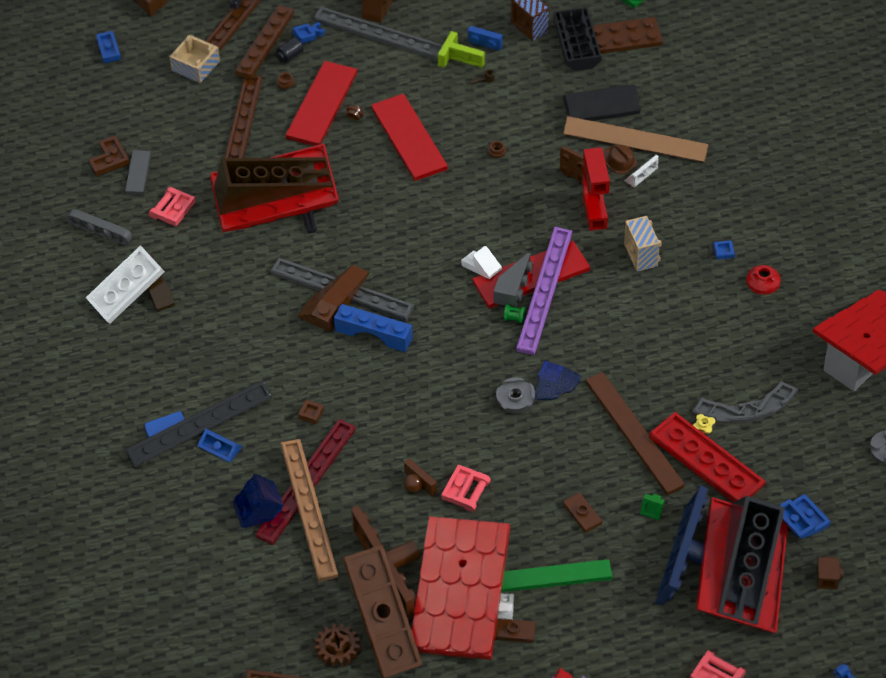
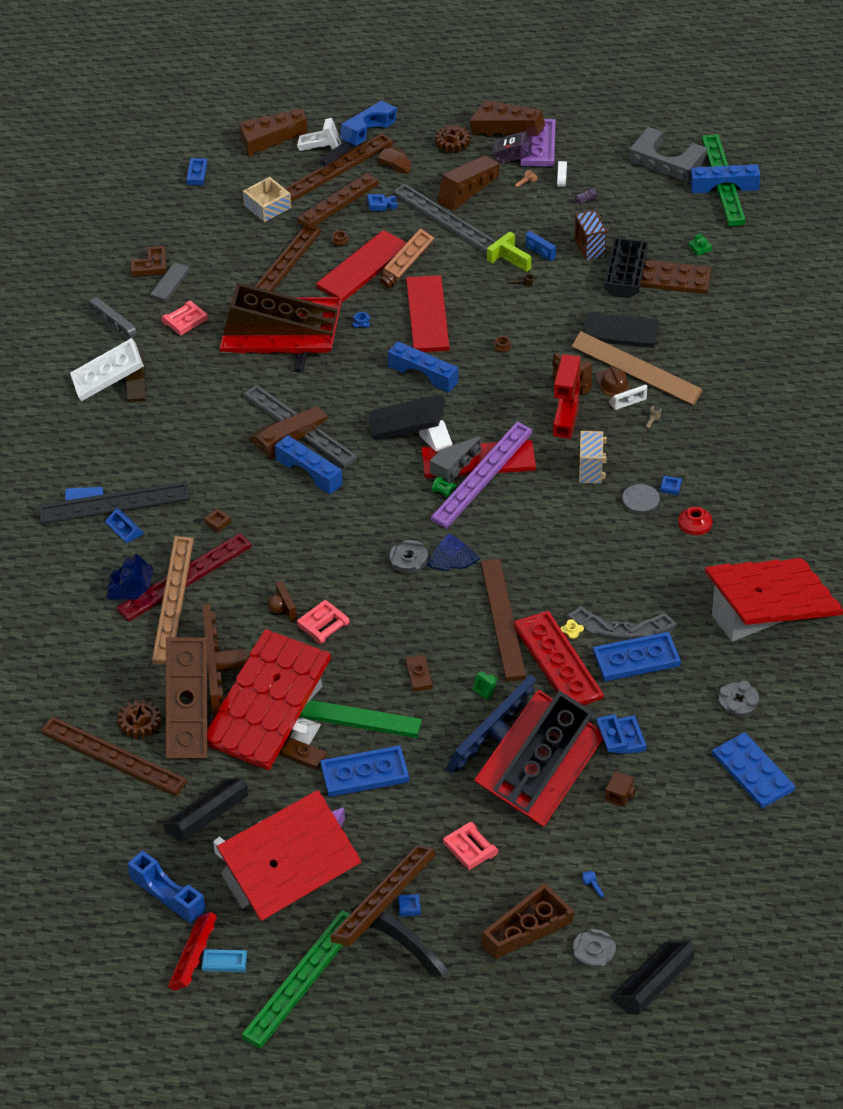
camera: 20 degrees right, 5 degrees down
(289, 50) = (355, 213): black brick -> none
(348, 161) = (361, 319): none -> blue plate
(362, 79) = (409, 254): none -> nougat plate
(448, 252) = (406, 417): none -> black piece
(454, 196) = (439, 372): none -> blue arch
(581, 630) = (364, 771): none -> blue plate
(674, 183) = (654, 415): none -> dark tan hand
(703, 272) = (640, 499): none -> flat silver tile
(777, 433) = (636, 656): none -> blue plate

